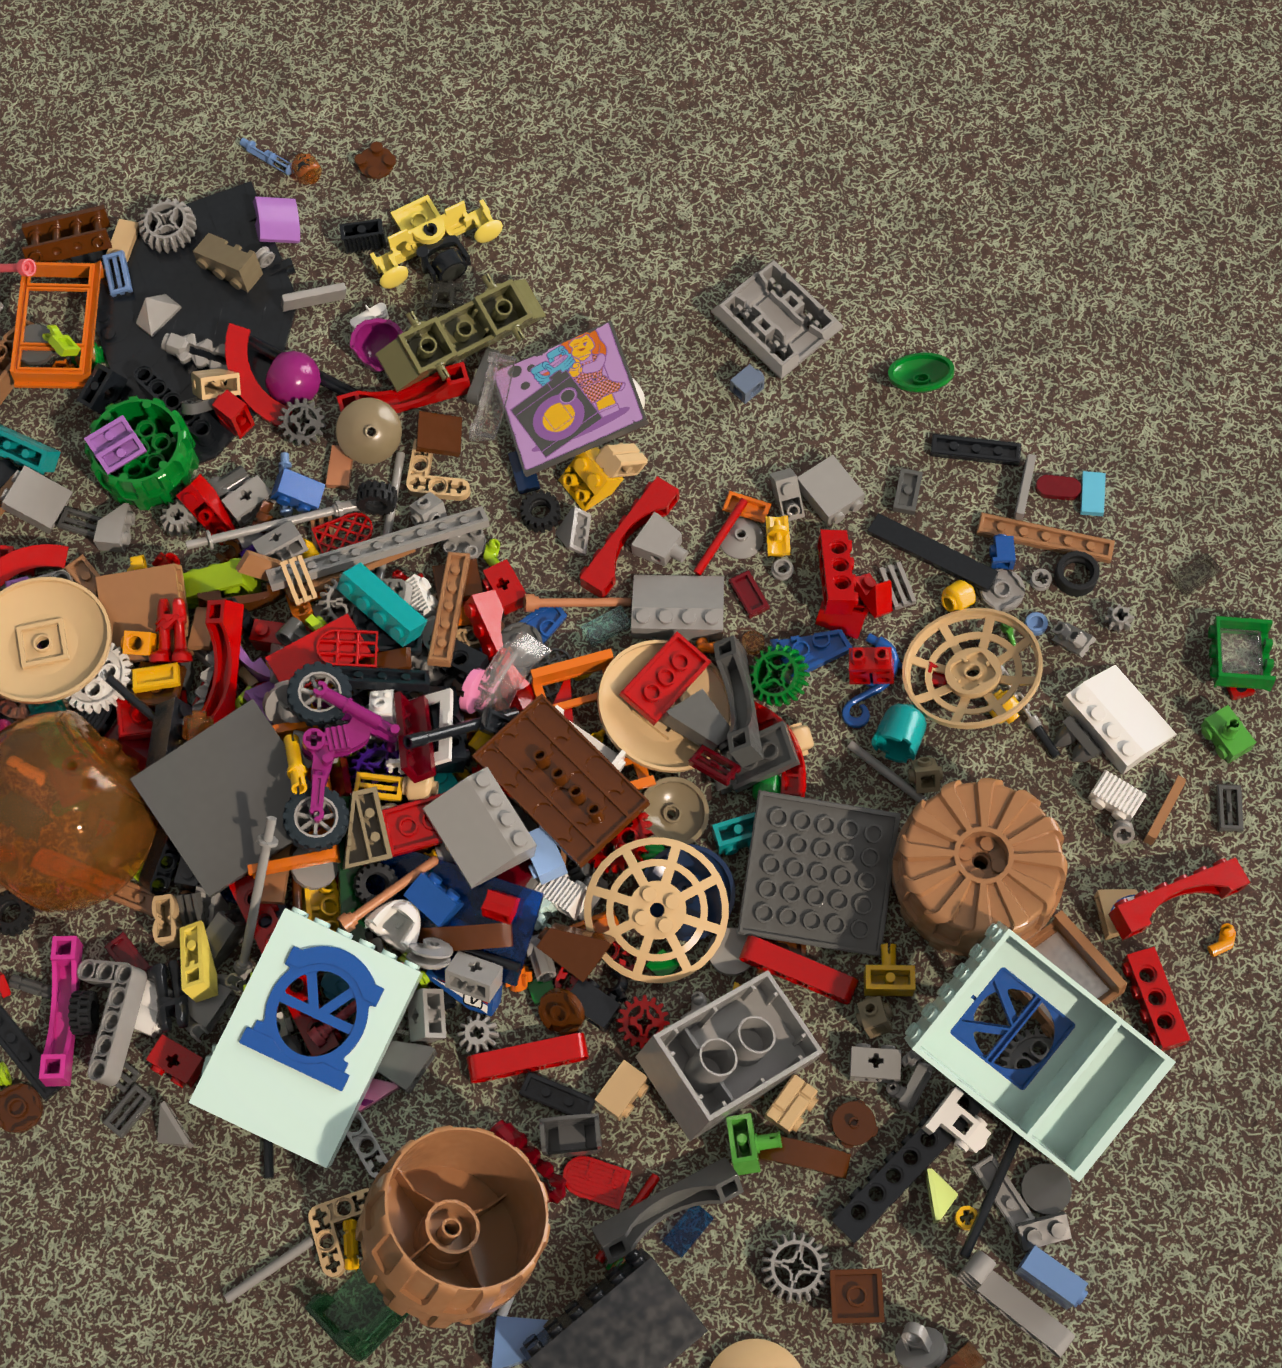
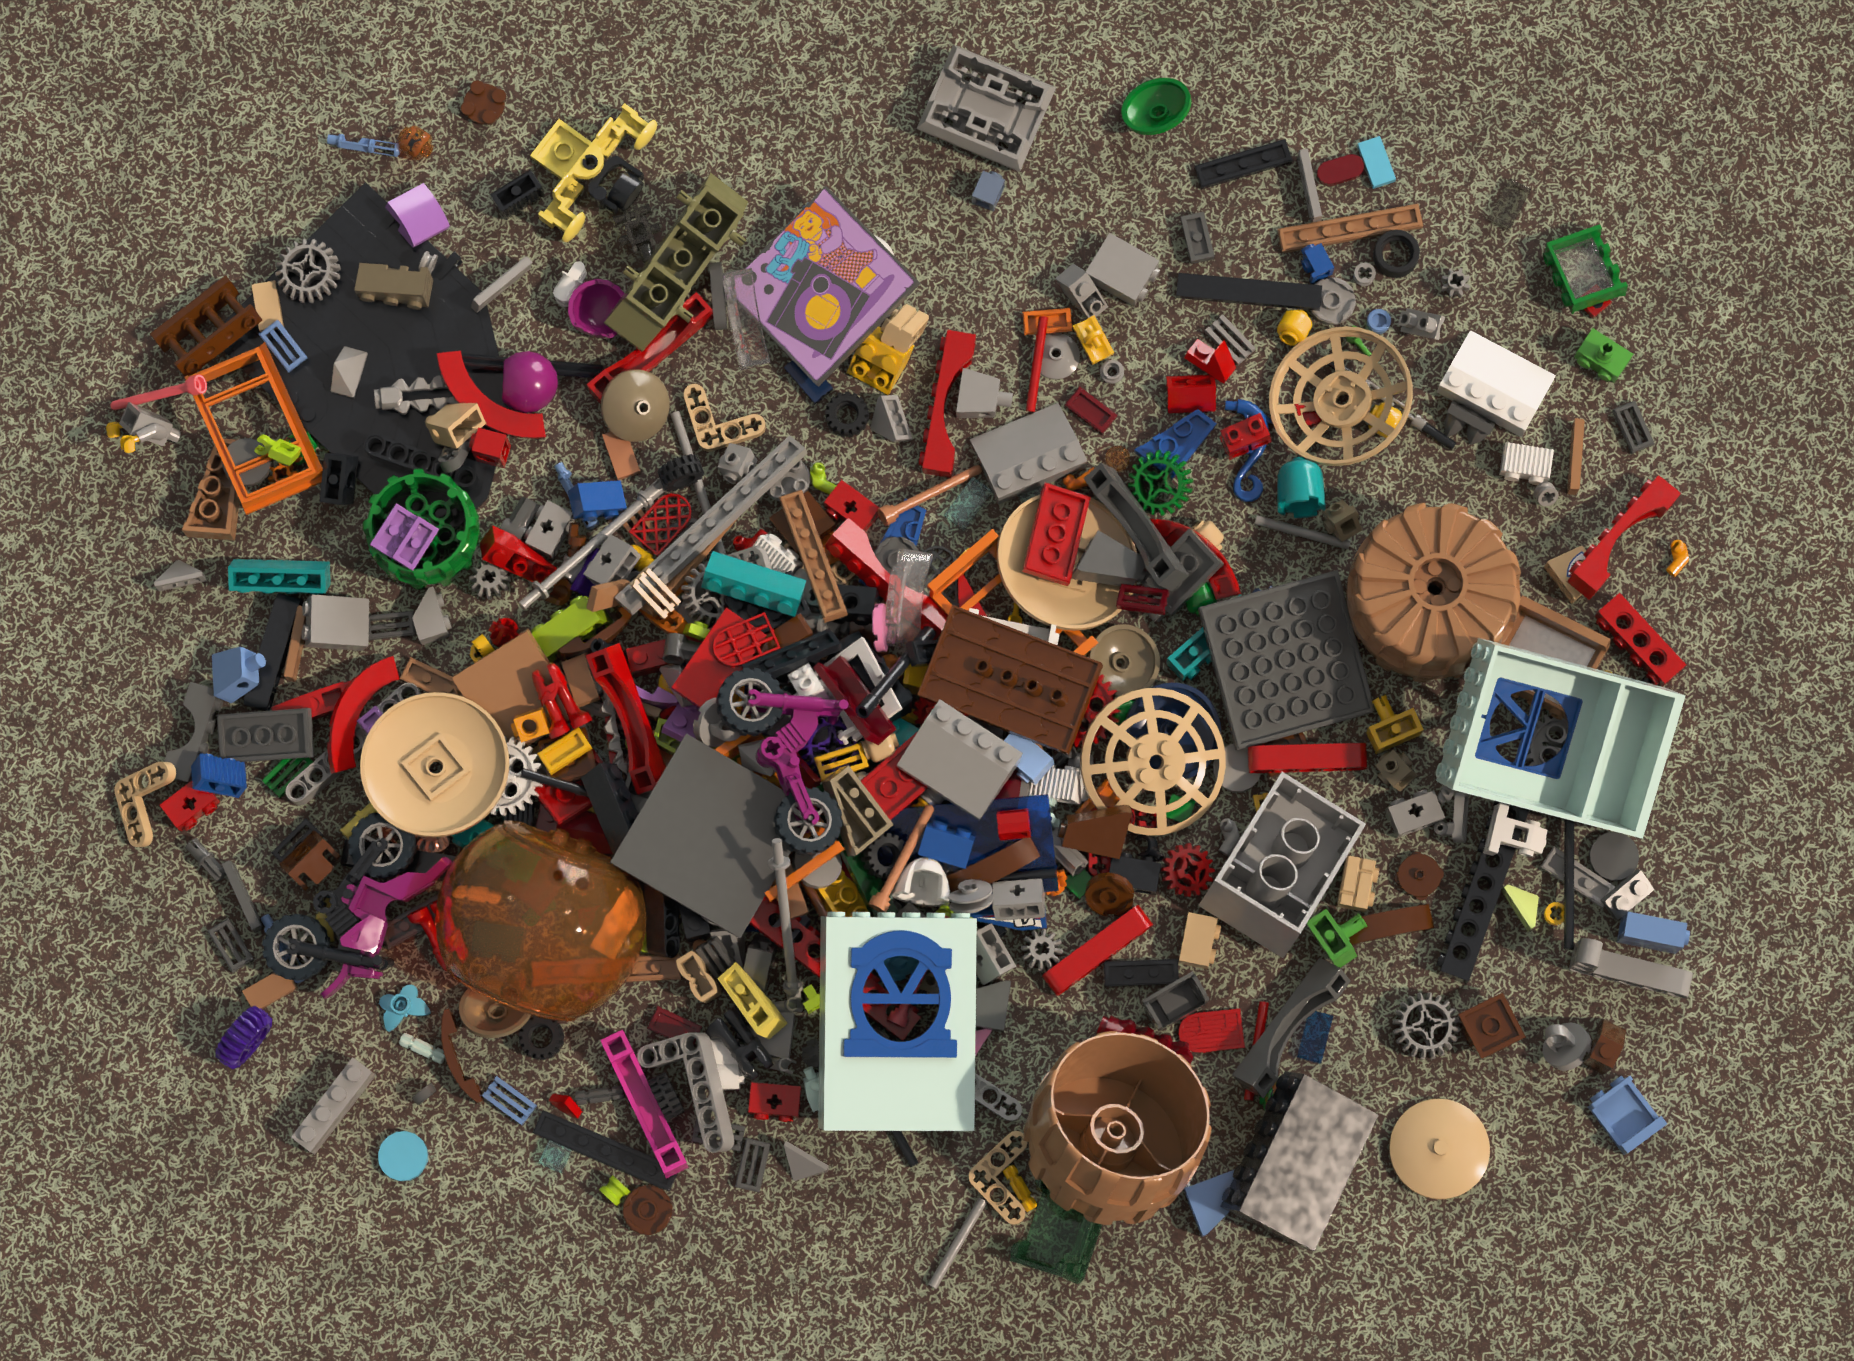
camera: 25 degrees left, 10 degrees up
(195, 724) = (639, 783): clear orange head -> none
(288, 420) = (557, 414): dark grey gear -> none
(296, 770) = (769, 785): yellow pin -> none
(439, 434) = (705, 377): reddish brown tile -> none
(836, 572) = (1180, 384): red brick -> none

